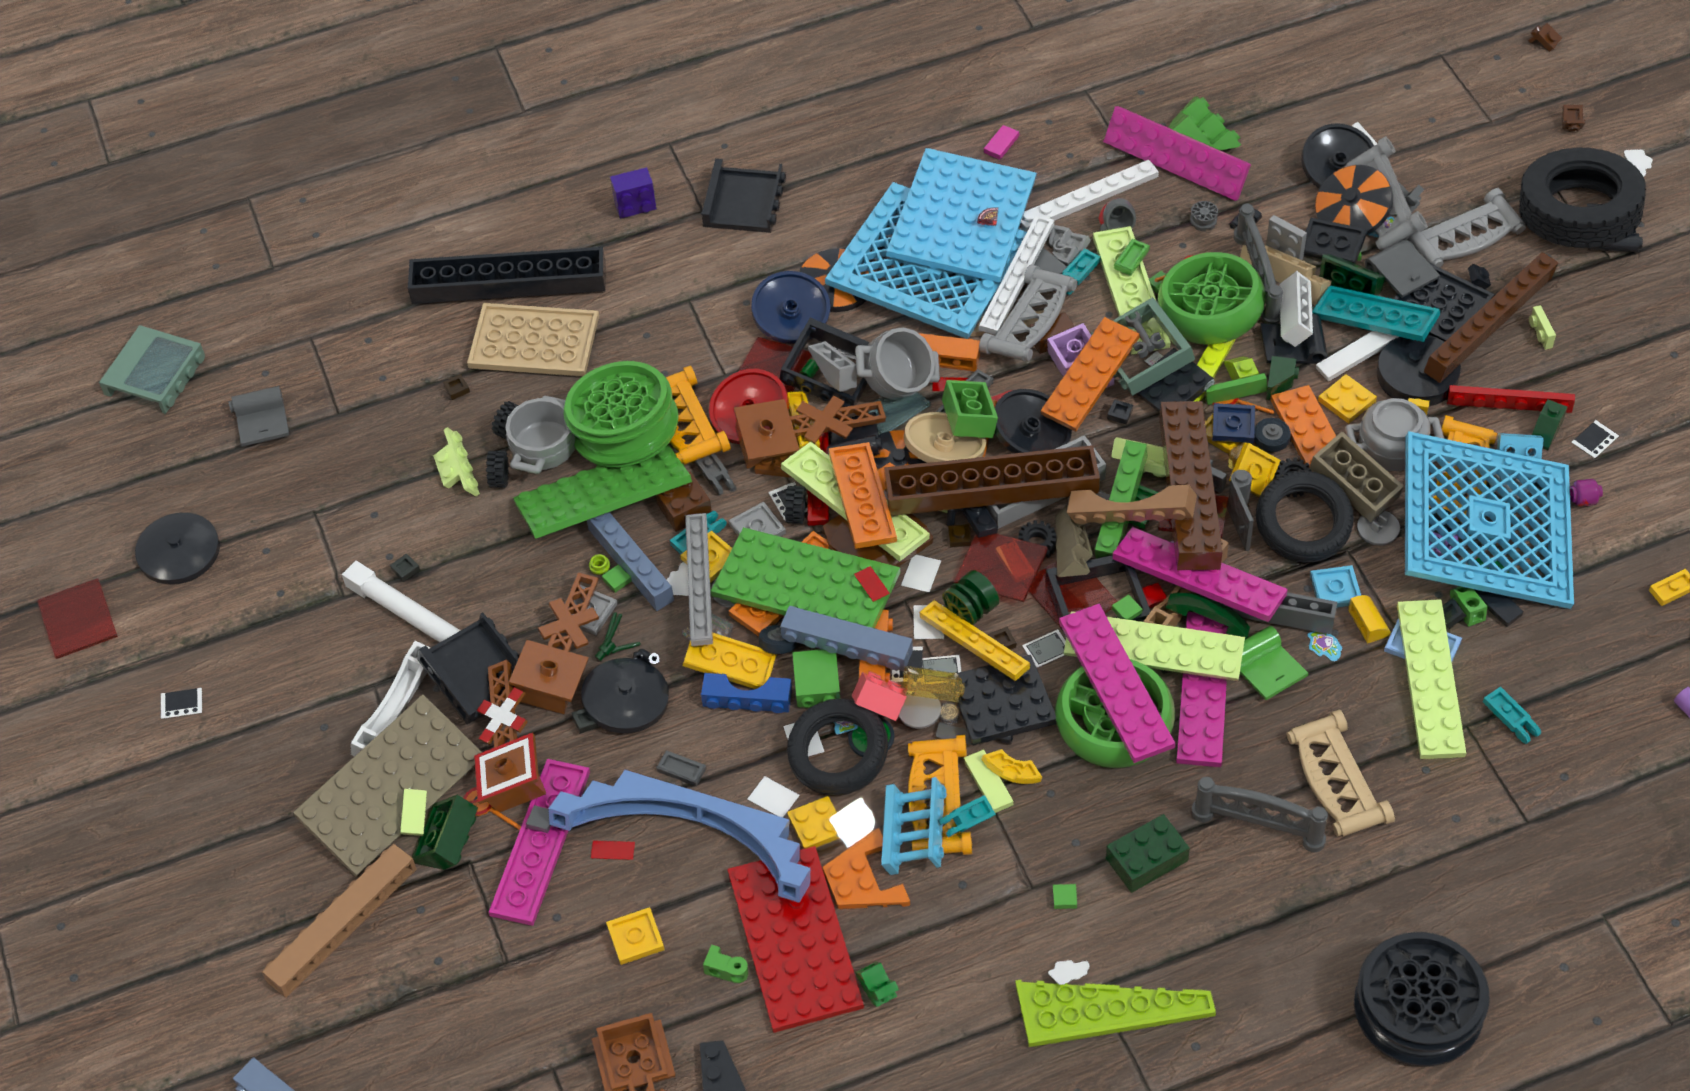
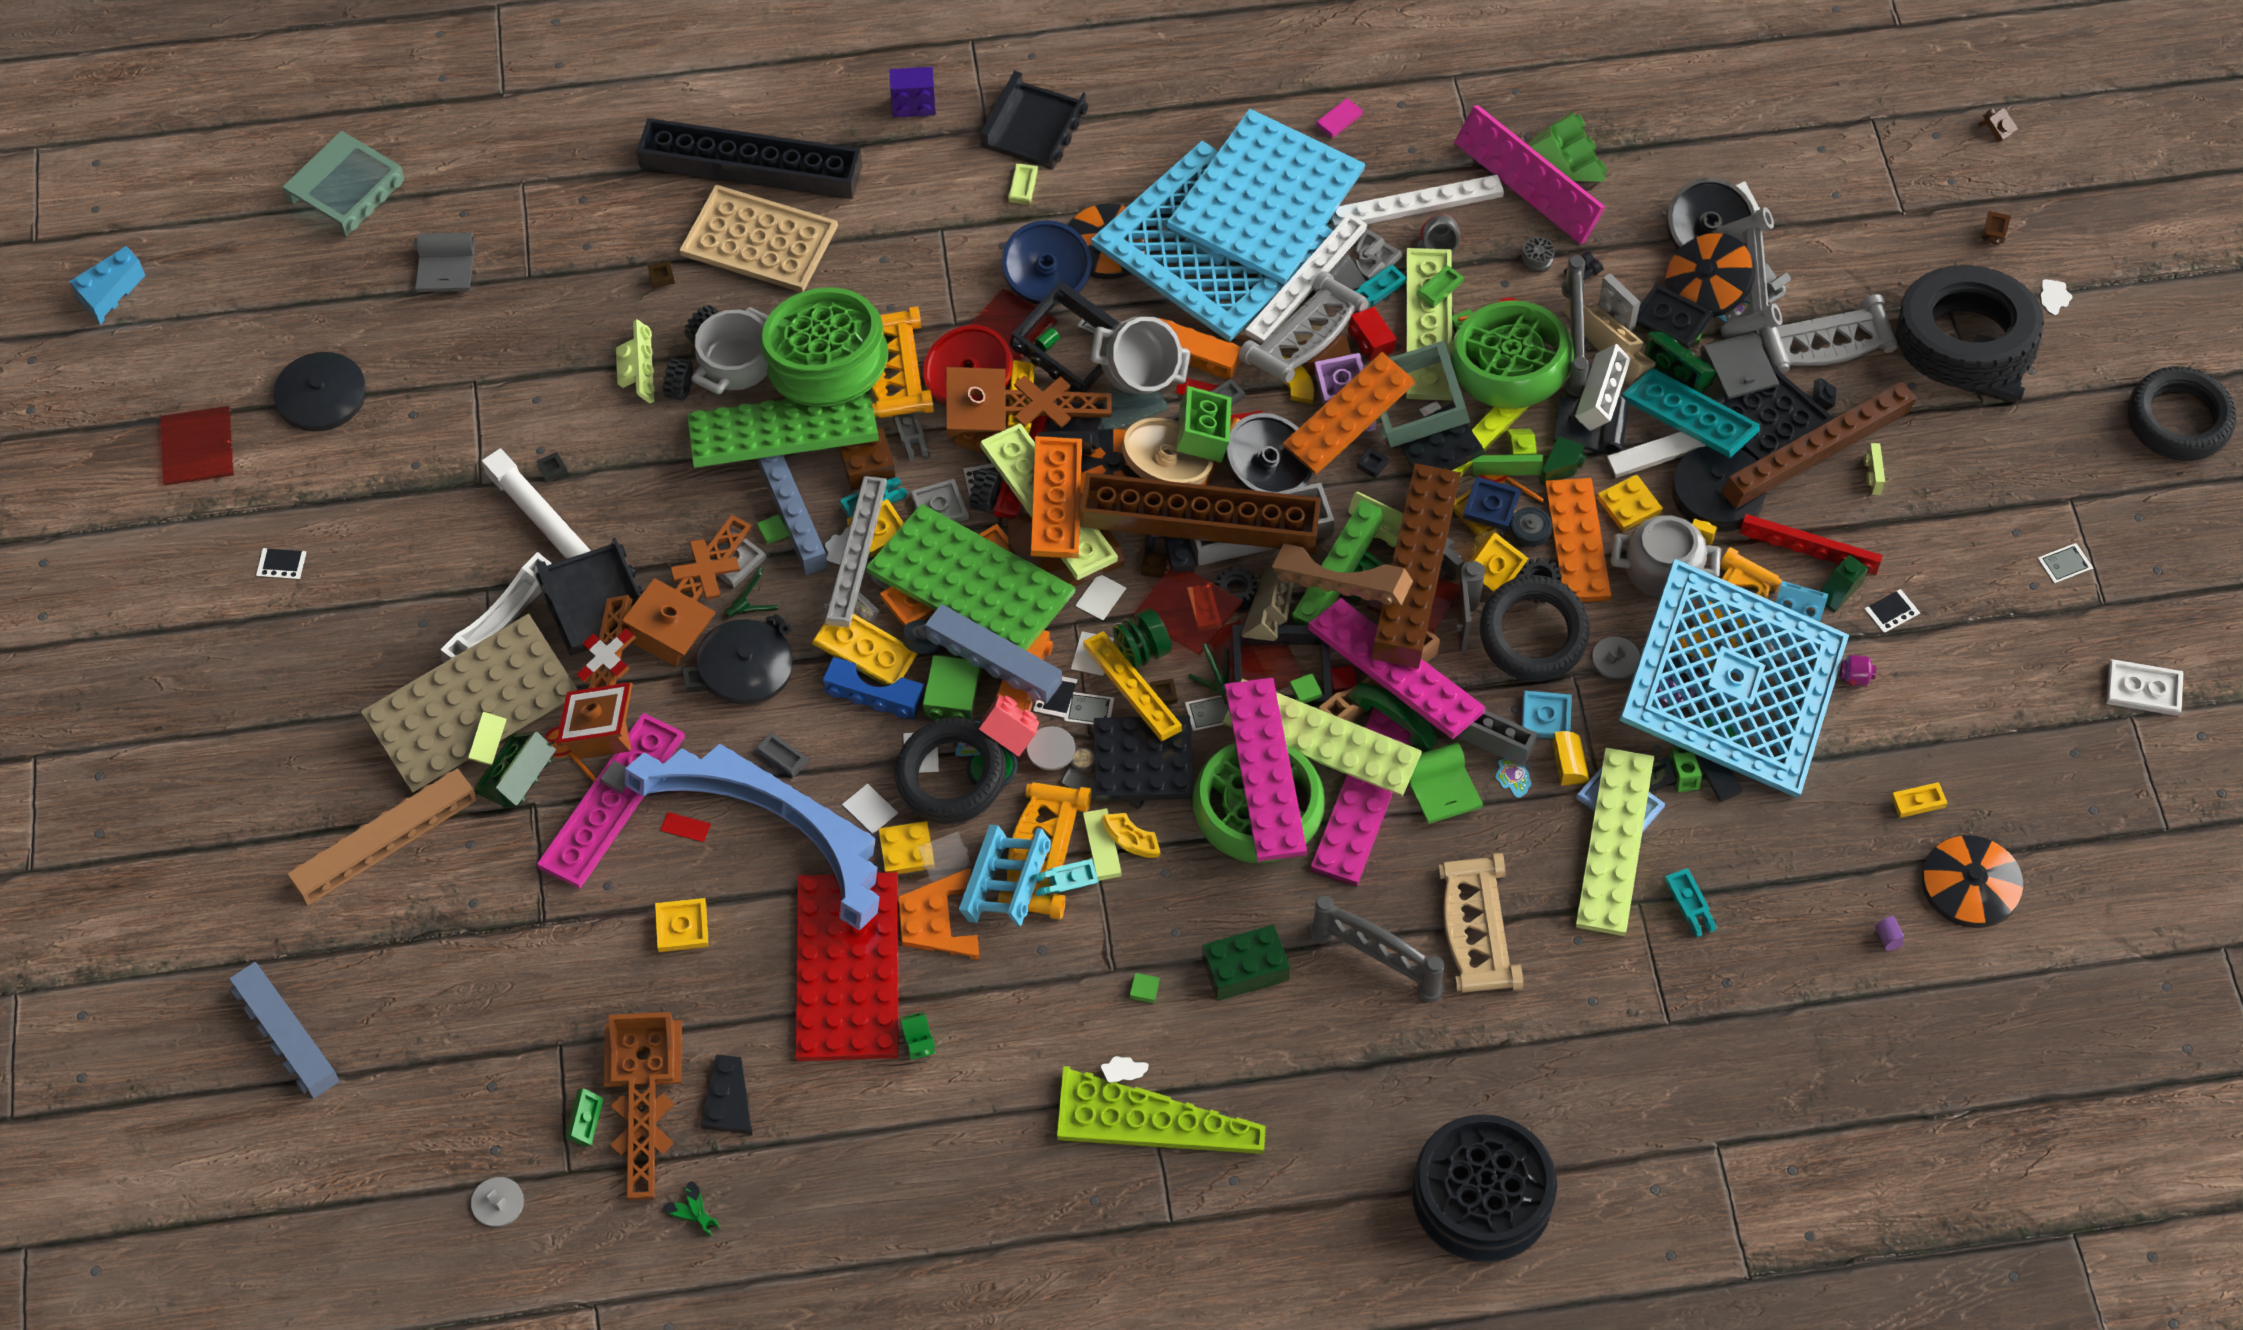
camera: 10 degrees right, 5 degrees up
(599, 560) = (755, 505): lime plate -> none
(724, 966) = (761, 978): bright green leg -> none
(749, 249) = (1023, 184): none -> yellowish green tile
(836, 367) = (1070, 342): light grey slope -> none
(871, 583) = (1038, 599): red sticker -> none
(932, 684) = (1069, 725): clear yellow window -> none
(988, 216) = (1292, 205): clear red tile -> none
(1039, 363) = (1301, 386): none -> yellow tile
(1050, 622) = (1219, 684): none -> dark green plant
(1086, 307) = (1371, 333): none -> red brick
(1147, 344) = (1421, 393): dark grey bar -> none
(1359, 475) = (1606, 595): dark tan brick -> none

